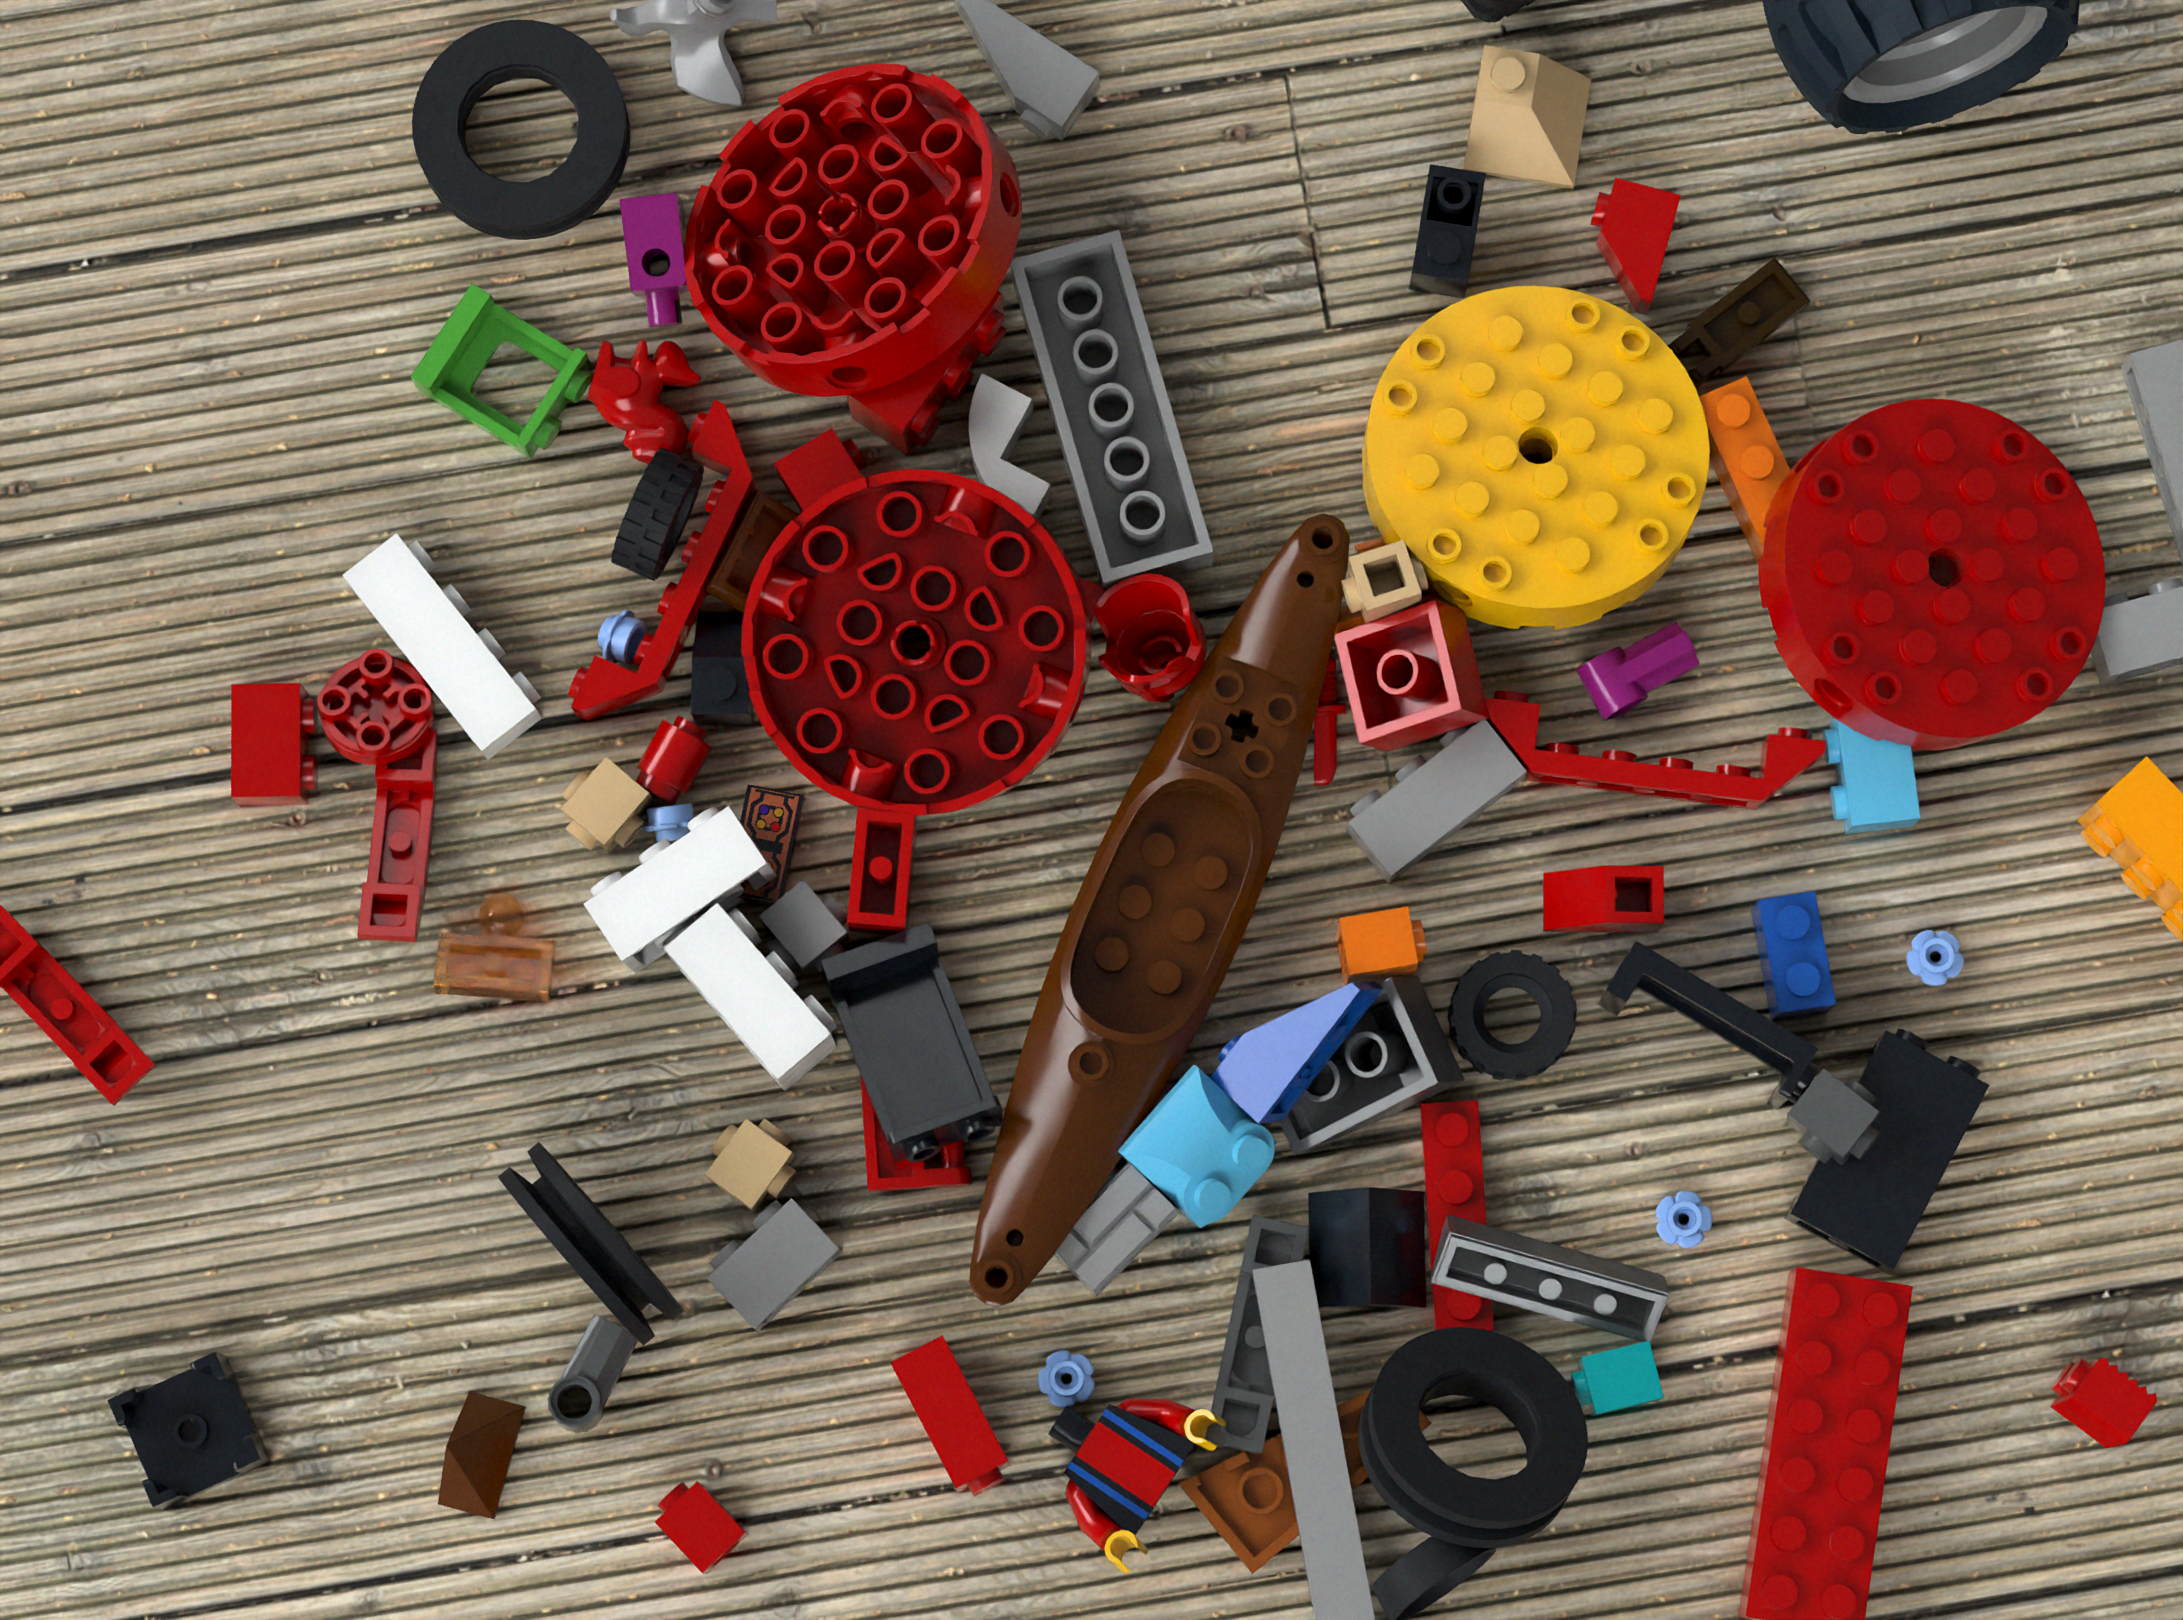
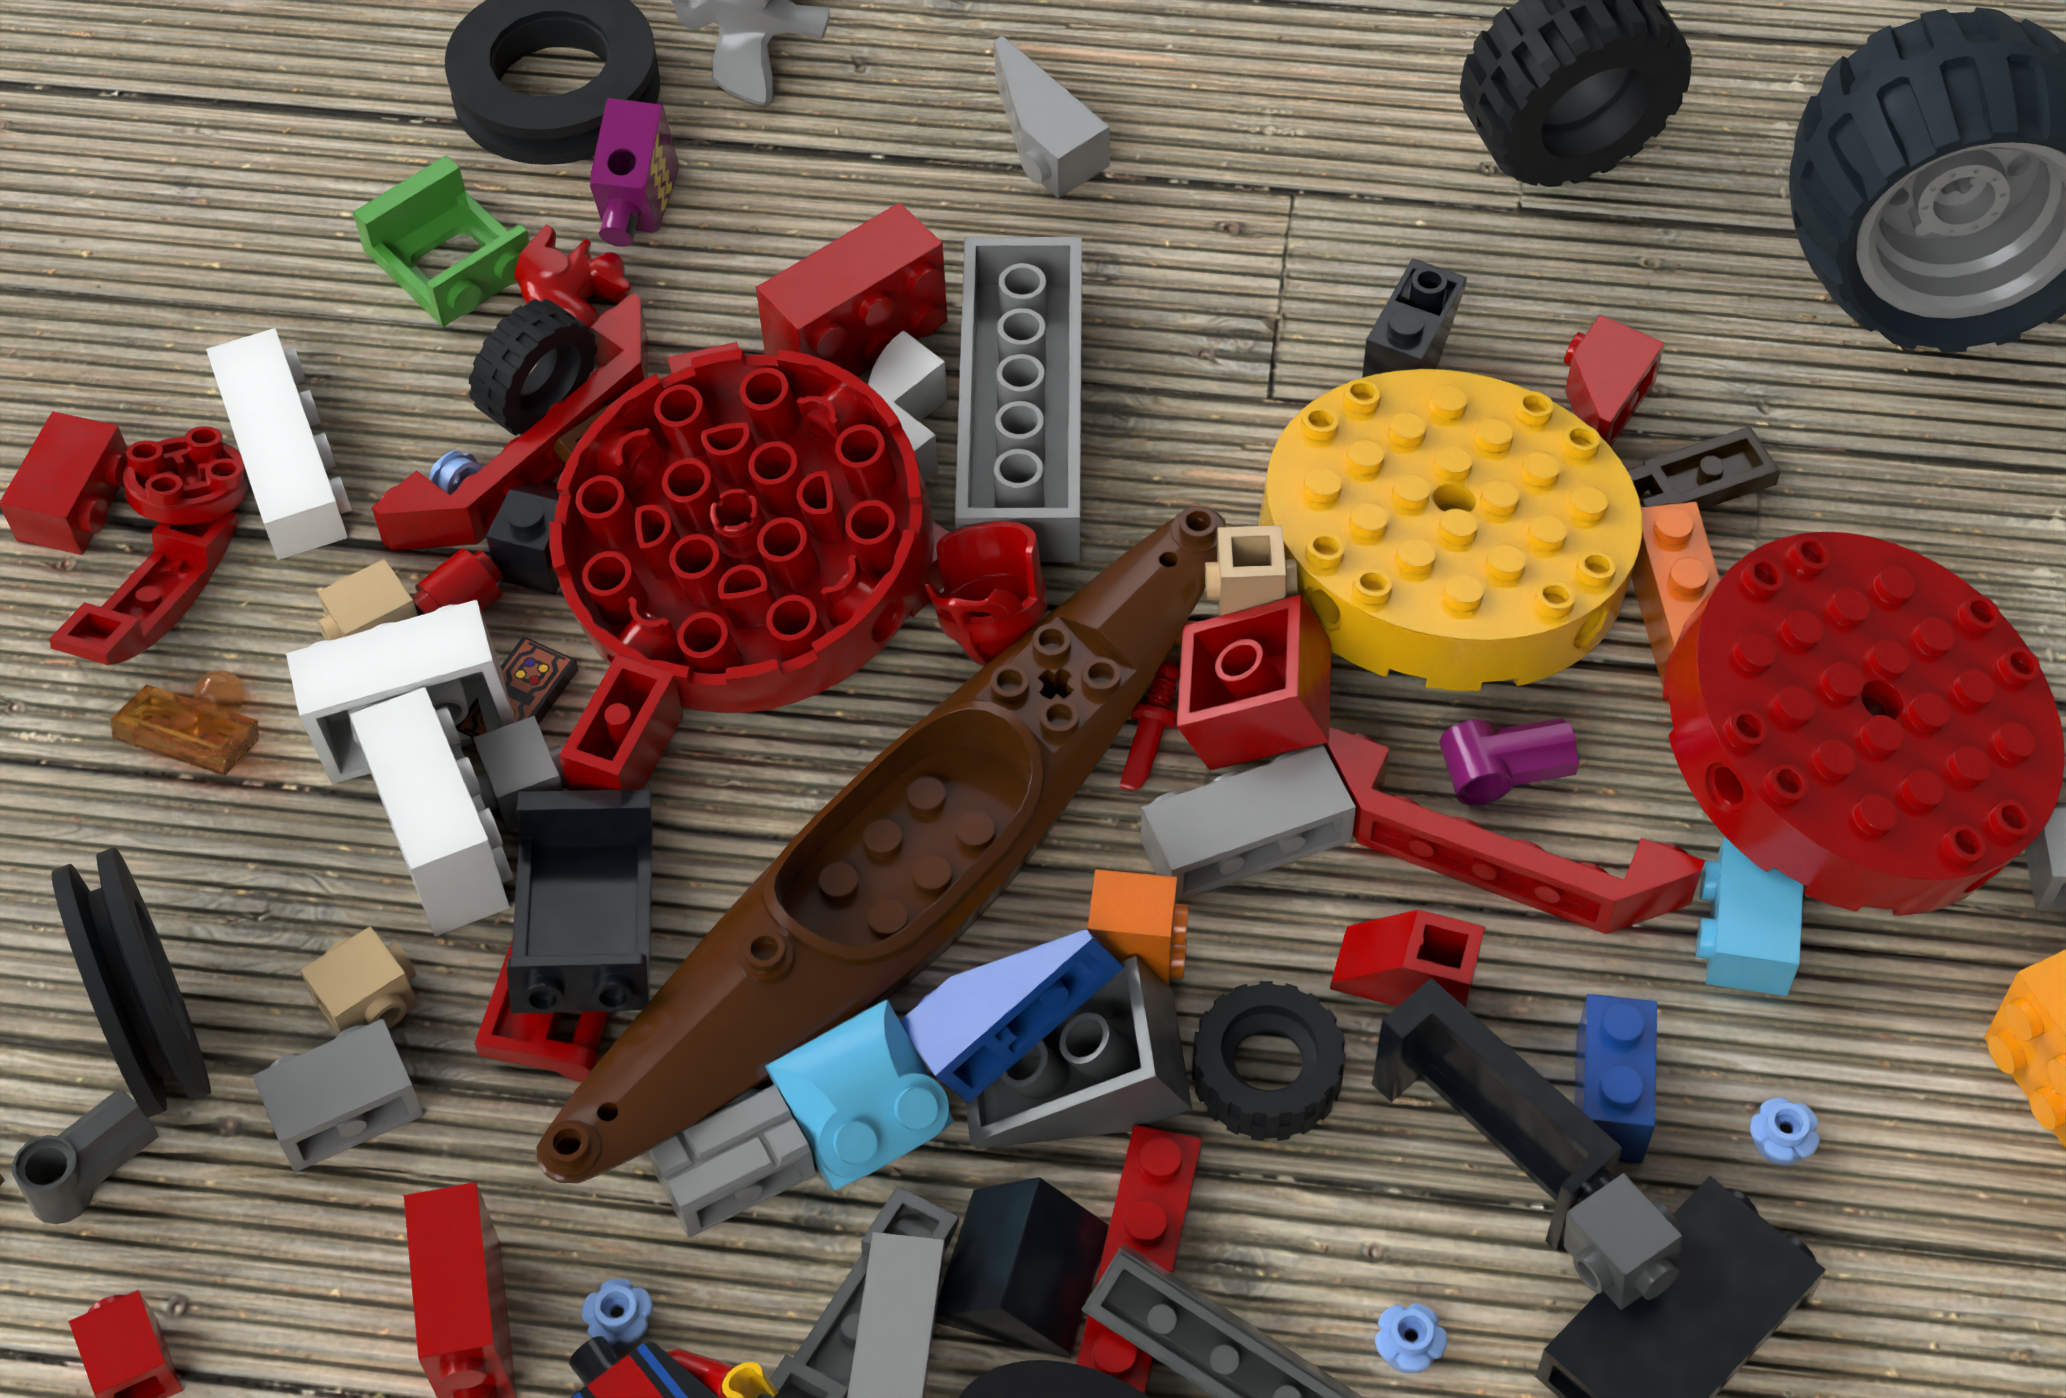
camera: 15 degrees right, 25 degrees down
(853, 231) = (818, 168): red brick -> none
(1527, 118) = (1523, 262): tan slope -> none

